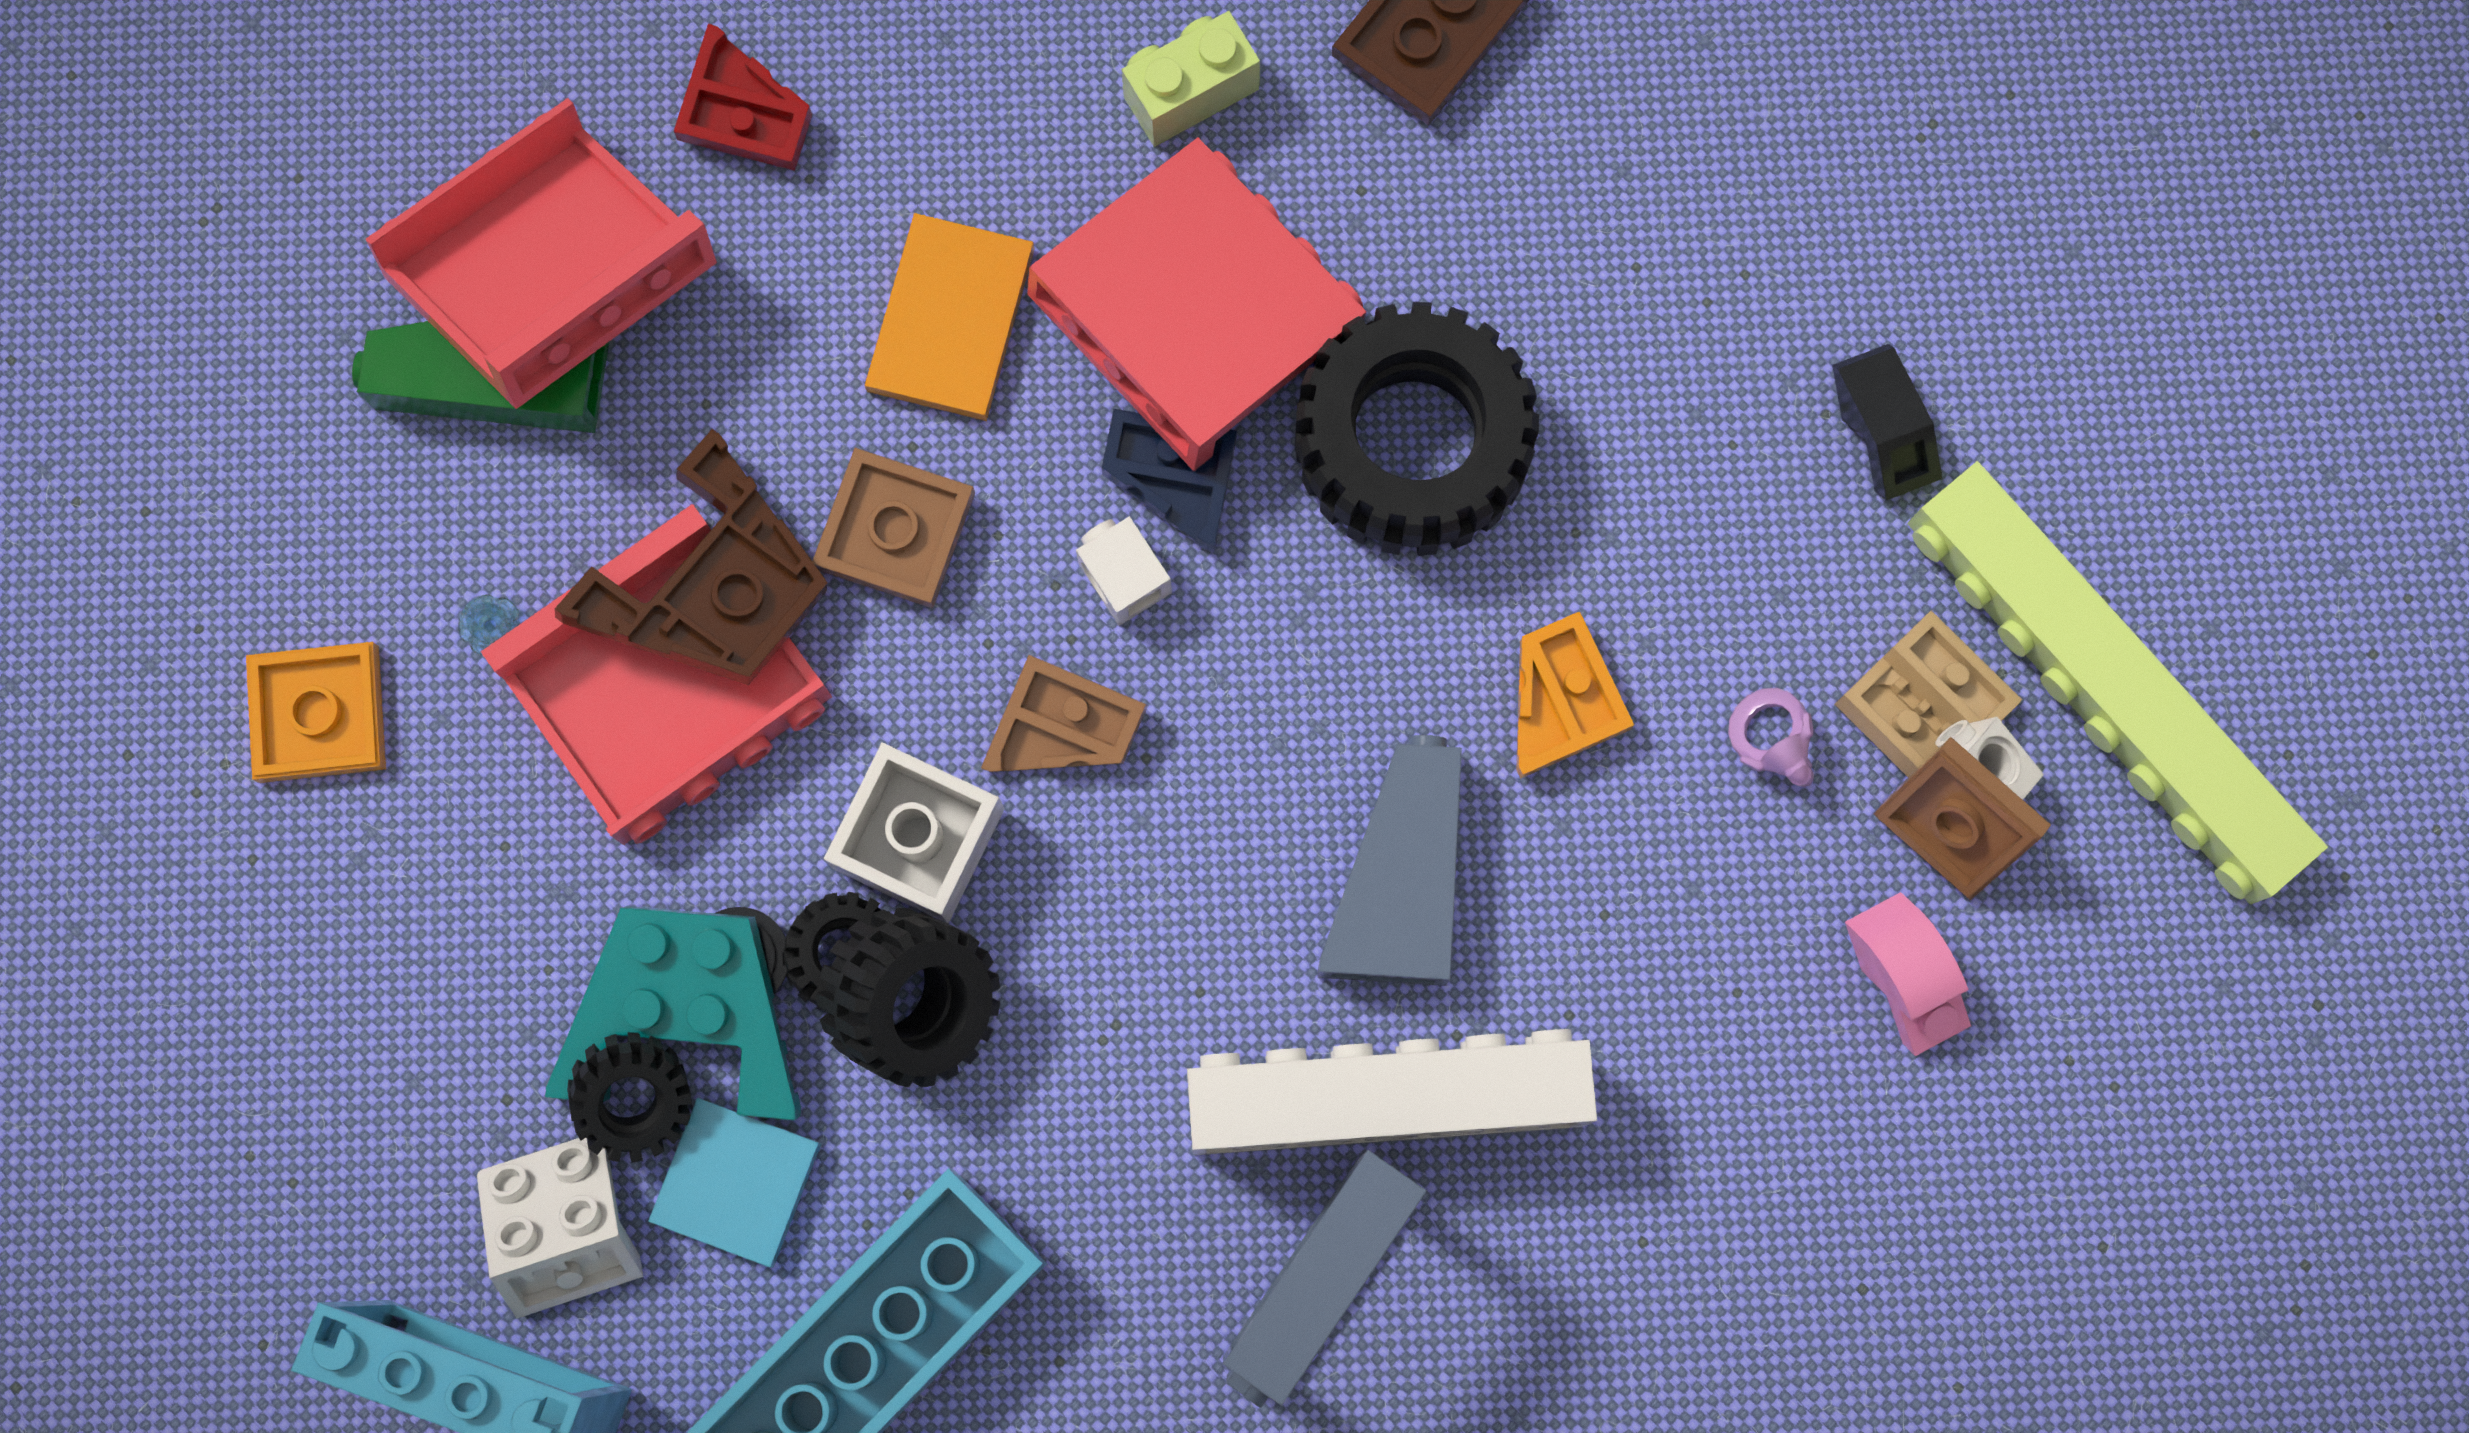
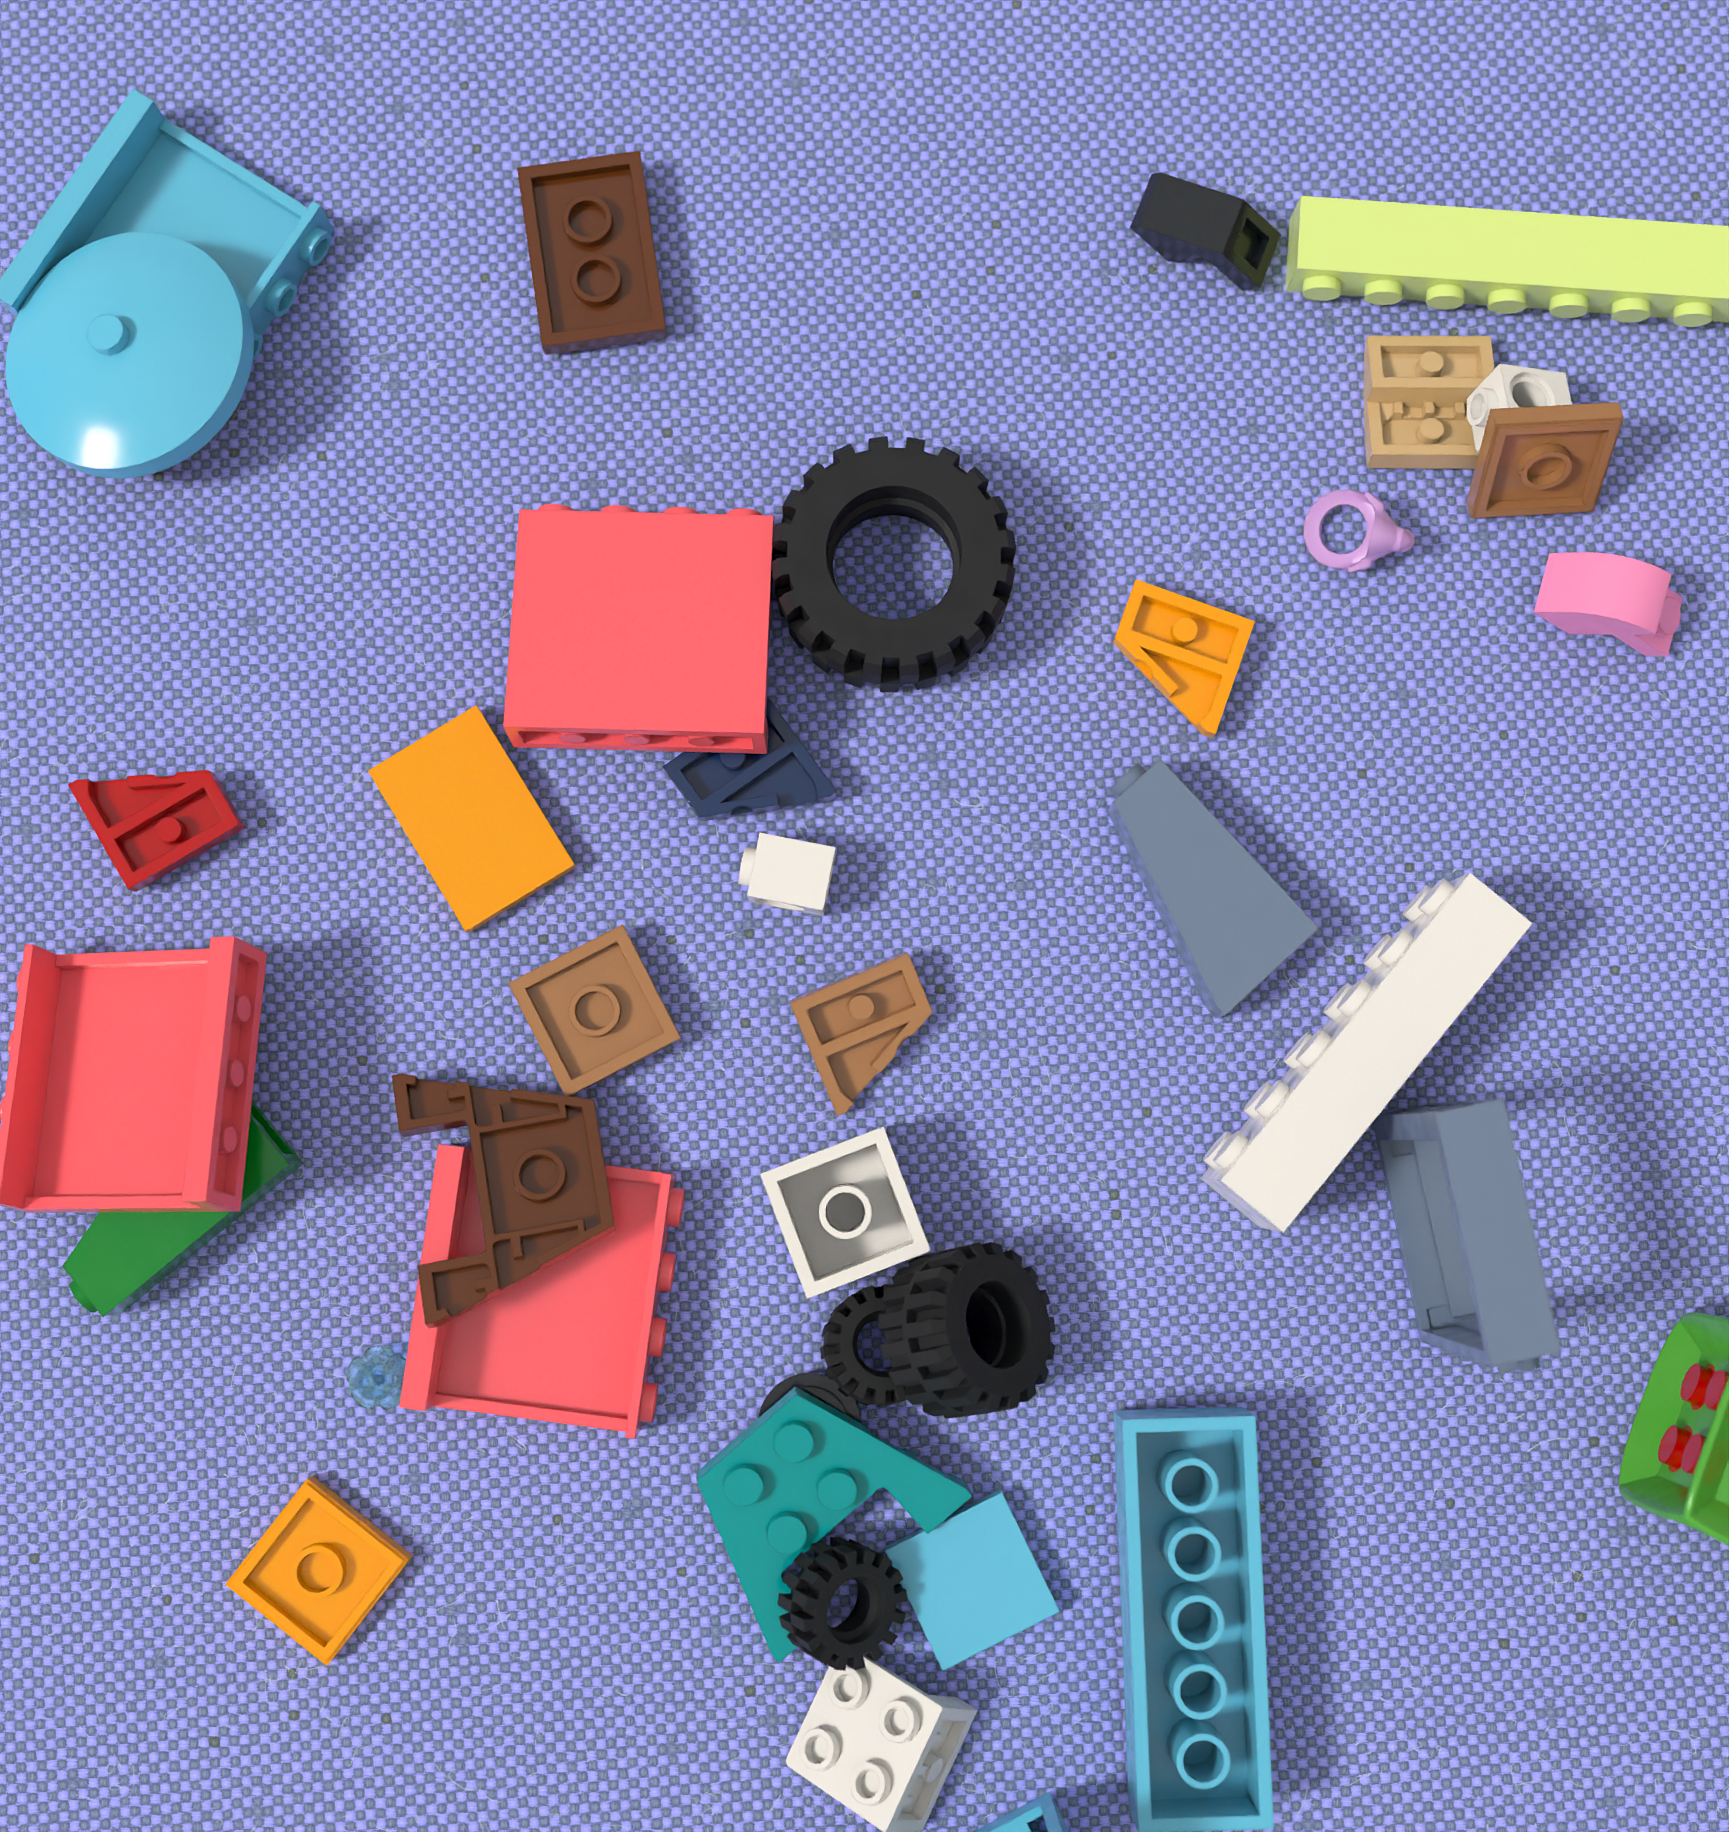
camera: 50 degrees left, 5 degrees up
(1190, 77) = (464, 470): yellowish green brick -> none

